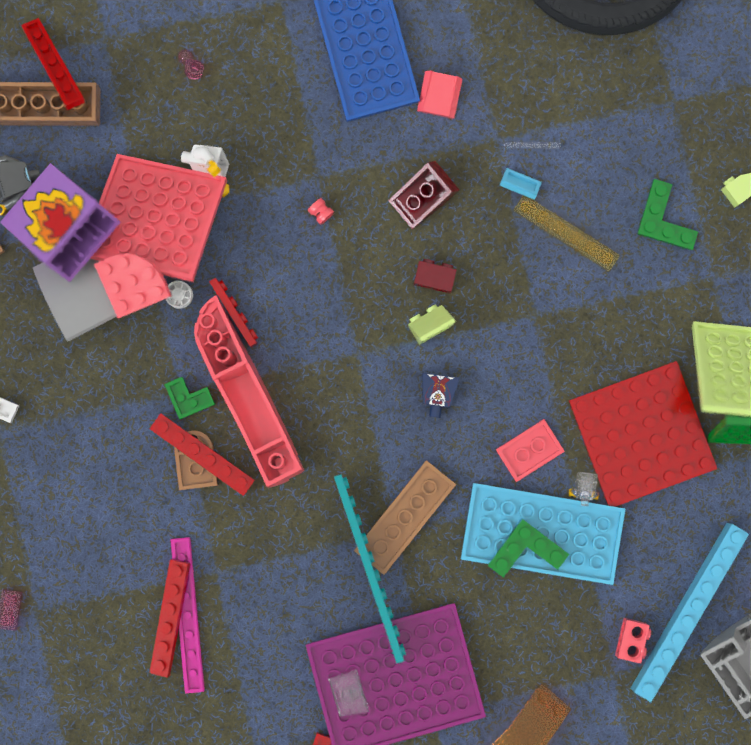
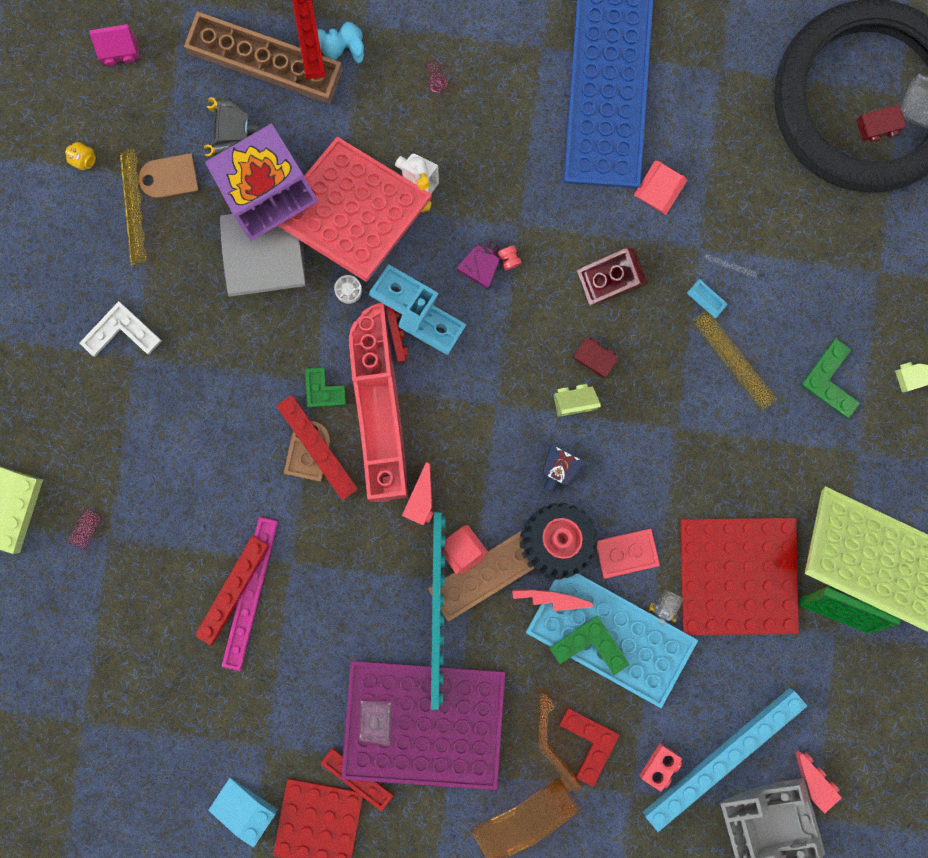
camera: 20 degrees right, 0 degrees up
(83, 66) = (335, 42): none -> medium azure animal
(131, 282) = (308, 262): coral plate -> none
(251, 290) = (417, 309): none -> medium azure bracket
(295, 227) = (480, 264): none -> magenta torso
(318, 472) = (420, 502): none -> coral slope
(374, 502) = (463, 550): none -> coral slope
(461, 462) = (558, 541): none -> black wheel
(480, 517) = (559, 600): none -> coral slope
(503, 622) = (544, 707): none -> clear orange windscreen
(570, 636) = (601, 737): none -> red plate

